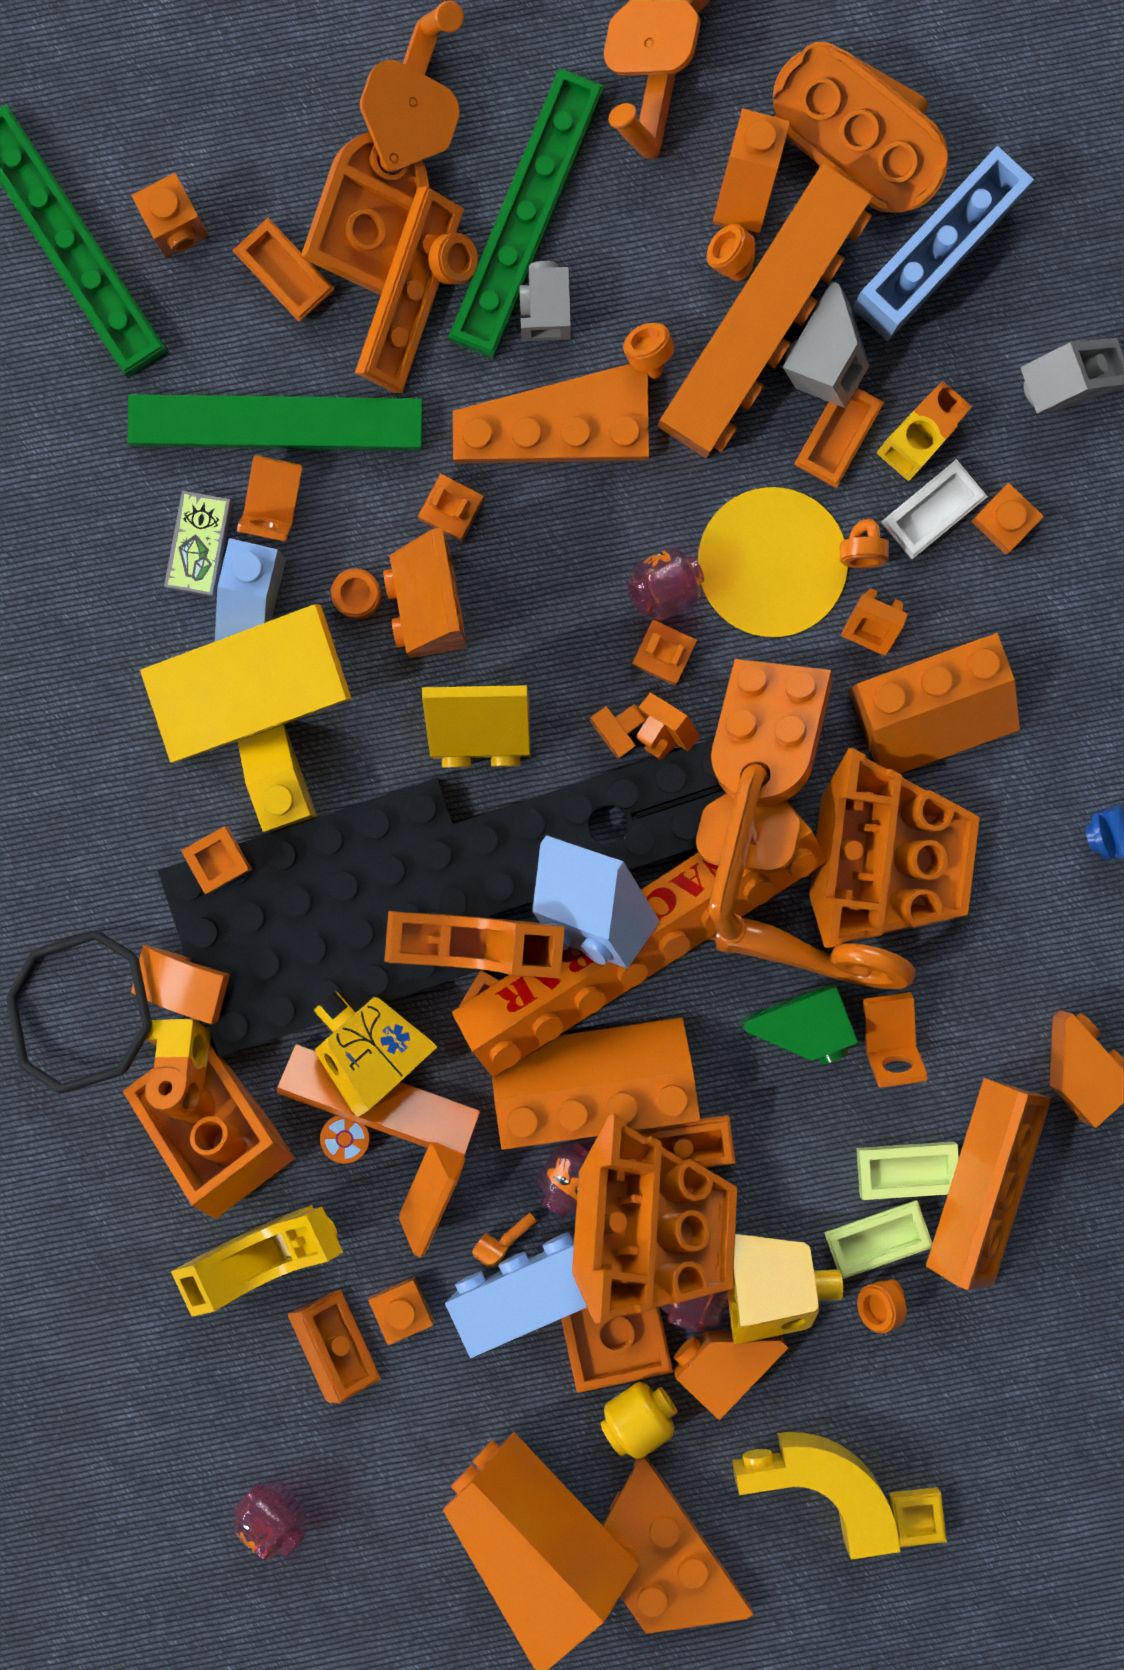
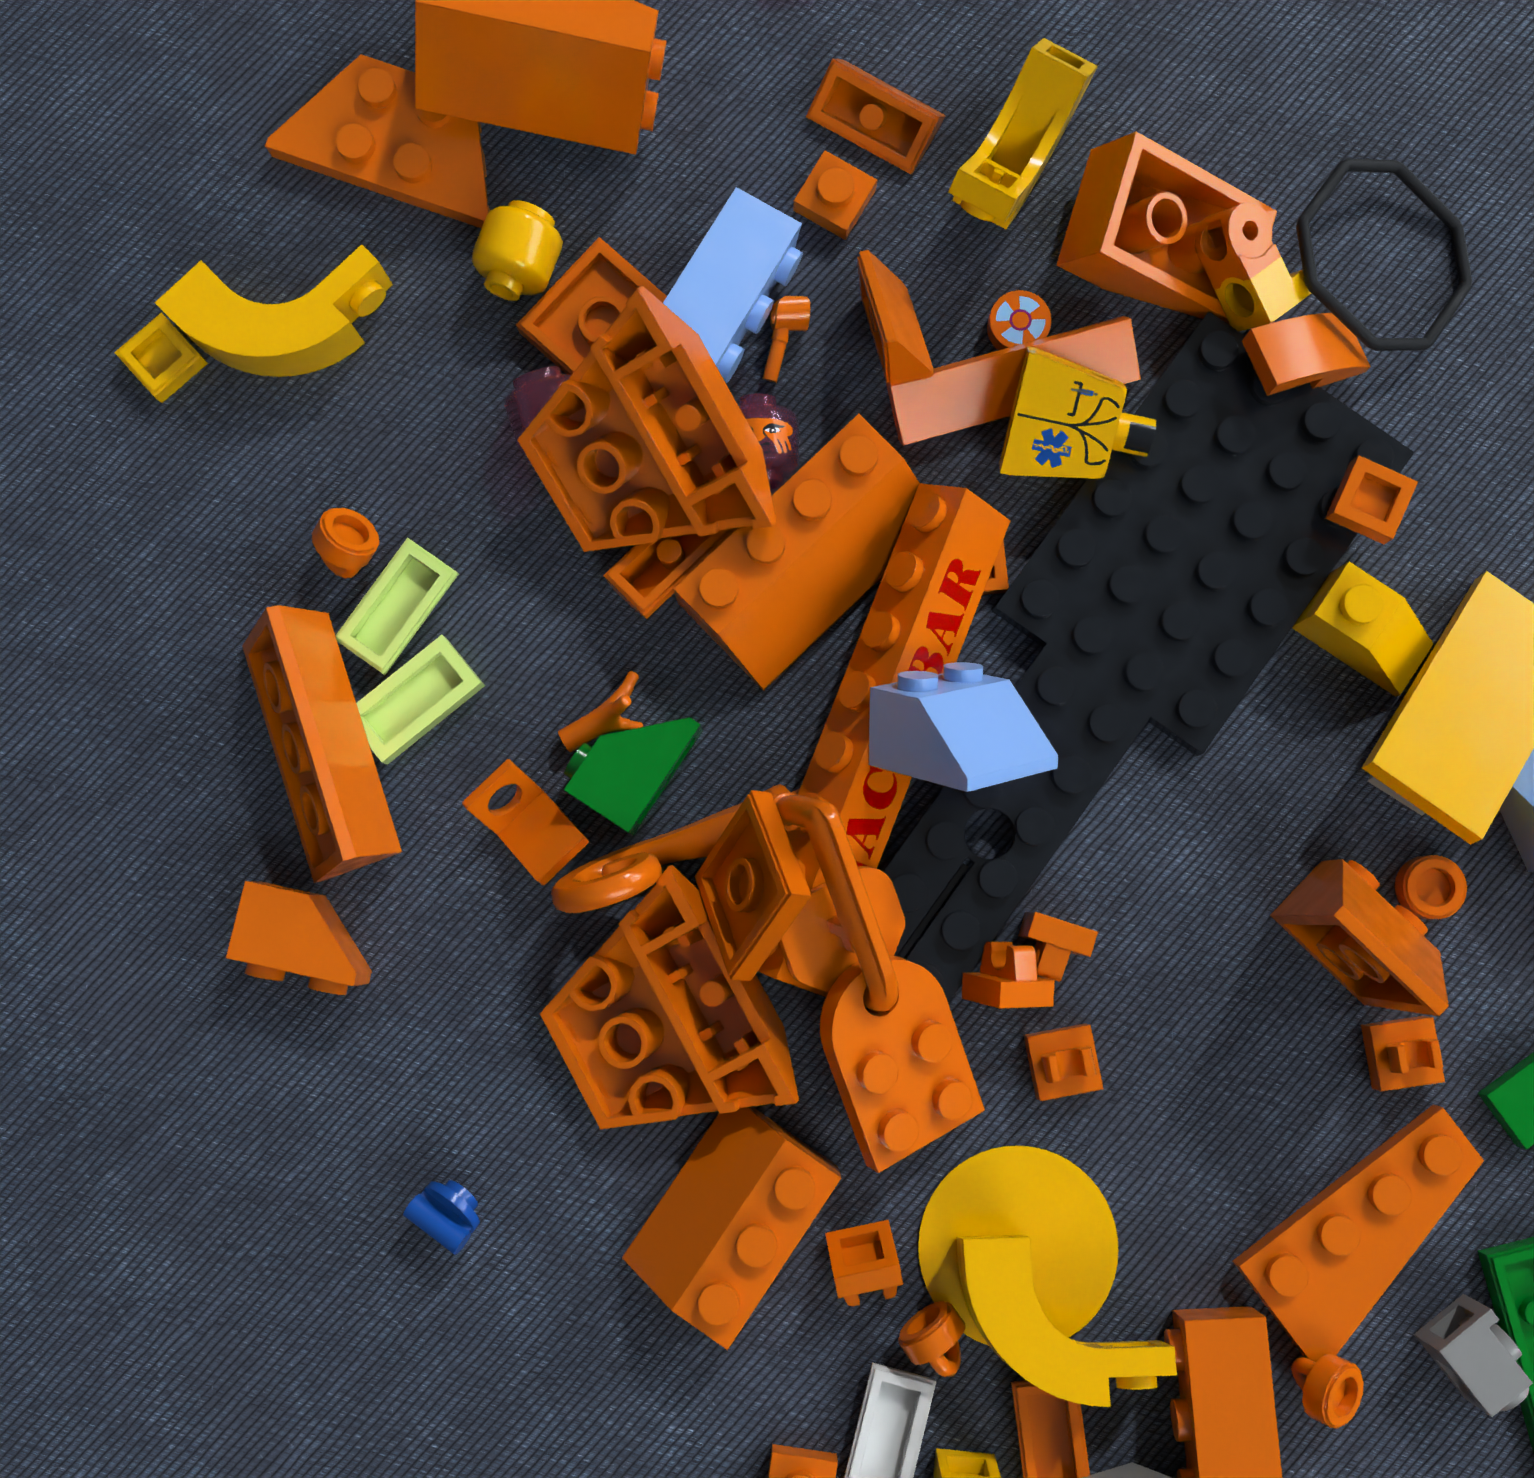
camera: 145 degrees right, 5 degrees down
(475, 943) = (1048, 602): orange arch -> none
(477, 724) = (1216, 838): yellow slope -> none
(665, 584) = (1119, 1138): clear pink head -> none
(724, 1371) = (466, 367): orange slope -> none
(776, 1288) = (470, 477): yellow torso -> none
(787, 899) = (752, 886): none -> orange tile
(797, 1072) = (602, 719): none -> orange bar
(811, 503) = (1006, 1311): none -> yellow arch

